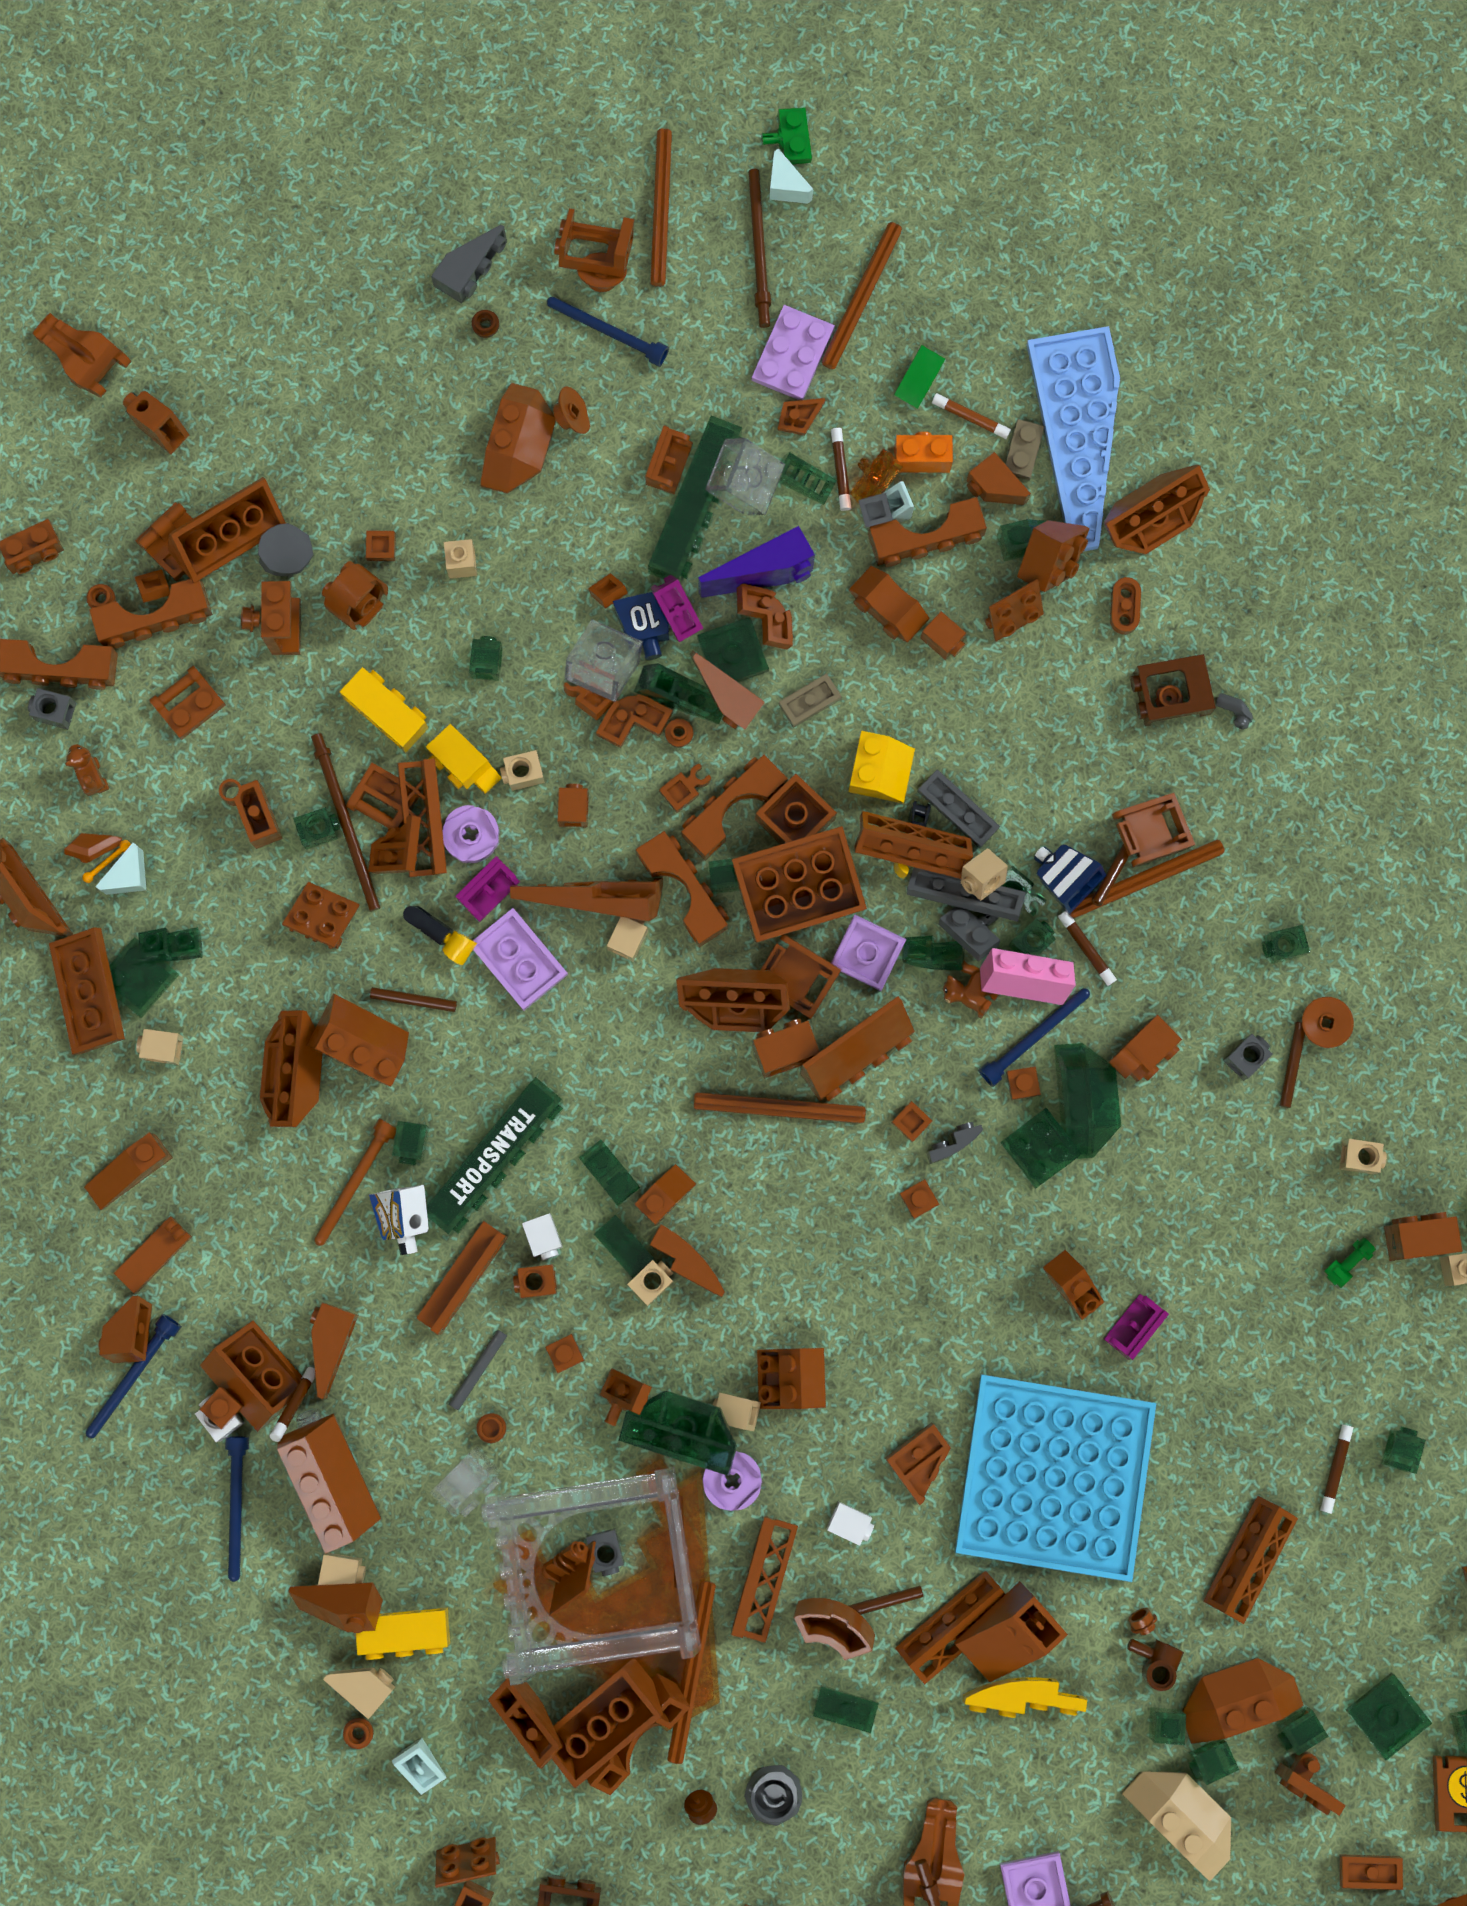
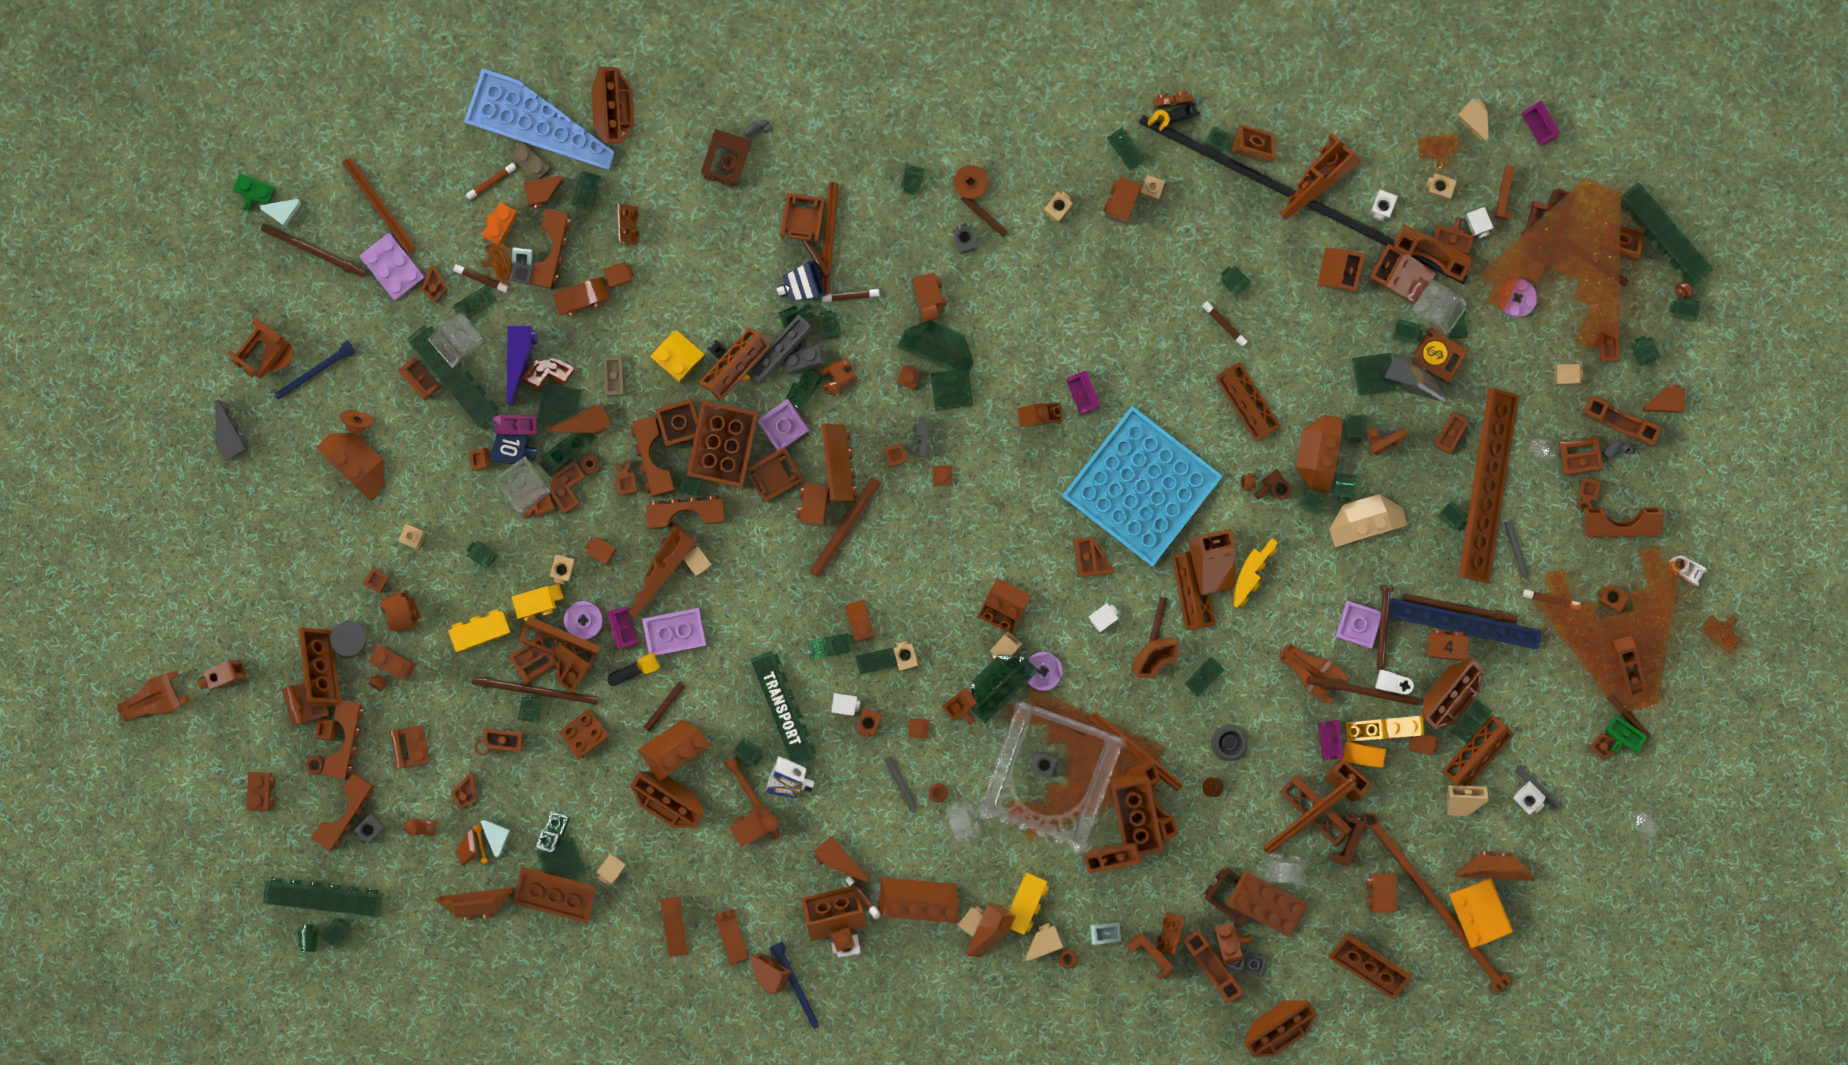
camera: 60 degrees left, 5 degrees up
(164, 804) = (465, 792): none -> dark orange piece
(236, 1449) = (870, 945): dark blue piece -> none
(315, 1204) = (753, 826): none -> dark orange hinge
(432, 1822) = (1139, 940): none -> dark orange panel
(462, 1278) = (842, 764): dark orange fence -> none
(485, 315) = (265, 438): reddish brown plate -> none
(571, 1574) = (1044, 789): dark orange hinge -> none
(661, 207) = (254, 296): dark orange axle -> none
(687, 1260) = (904, 628): dark orange slope -> none
(734, 998) = (768, 518): dark orange wedge -> none
(753, 1576) = (1106, 691): dark orange fence -> none
(919, 376) = (450, 199): green slope -> none
(958, 808) = (727, 324): dark grey plate -> none
(983, 874) = (775, 333): tan brick -> none
(993, 1071) = (892, 390): dark blue piece -> none
(1027, 976) = (849, 341): bright pink brick -> none
(1053, 553) = (606, 183): dark orange slope -> none
(1125, 607) = (659, 157): dark orange plate -> none
(1340, 1273) = (1116, 258): green bar -> none
(1416, 1779) = (1413, 379): none -> dark grey slope

